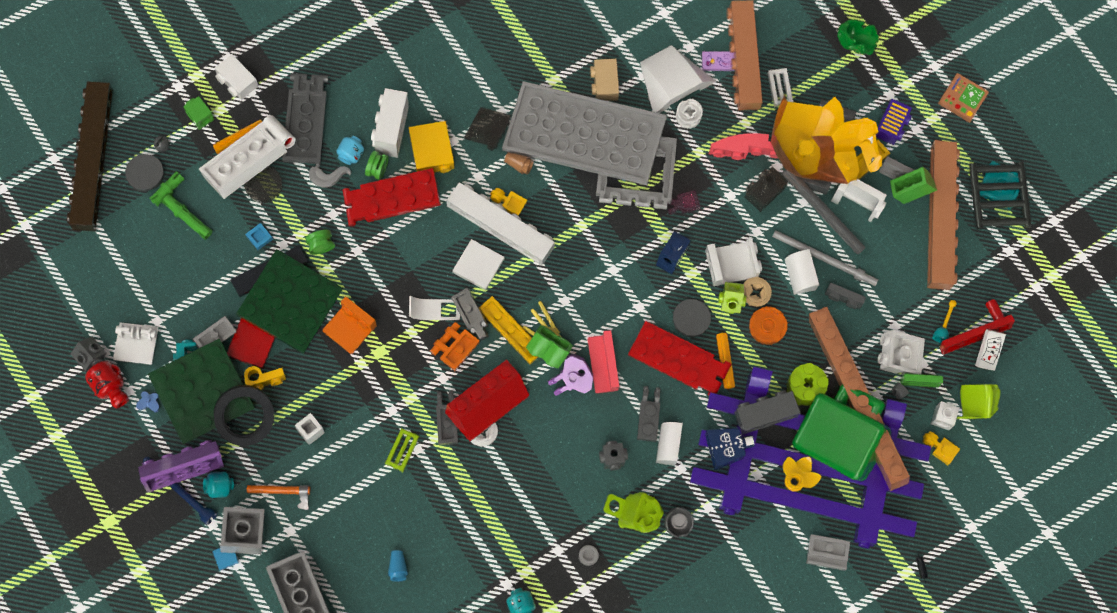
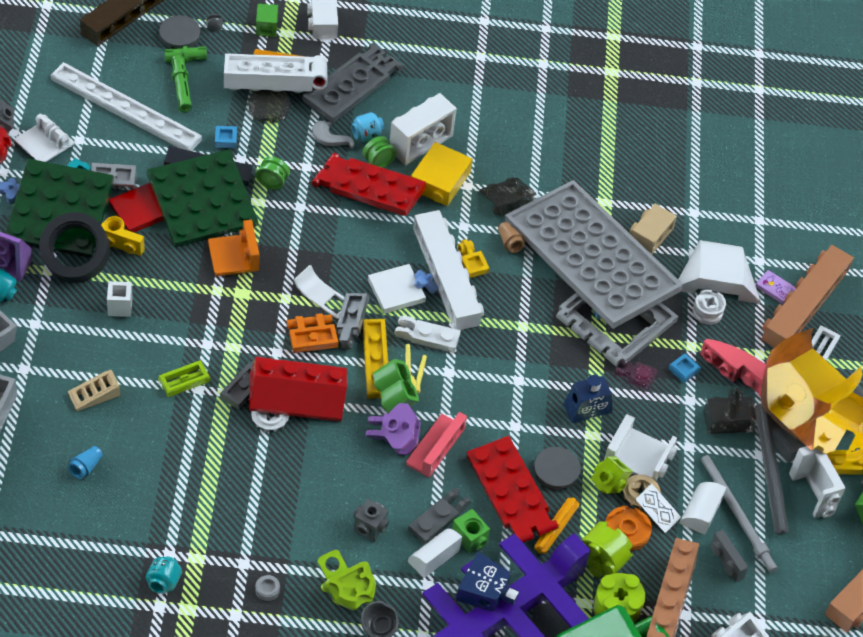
camera: 40 degrees right, 20 degrees down
(164, 268) = (126, 107): none -> white tile
(302, 490) = (65, 344): orange piece -> none
(355, 492) = (91, 385): none -> tan slope
(493, 244) = (425, 280): none -> medium blue piece
(529, 283) = (428, 334): none -> white hinge
(672, 415) = (471, 522): none -> bright green brick
(709, 174) = (684, 368): none -> dark azure tile
(766, 412) = (553, 585): dark grey brick -> none
(774, 357) = (607, 549): none -> lime brick
(776, 296) = (658, 508): none -> white sticker

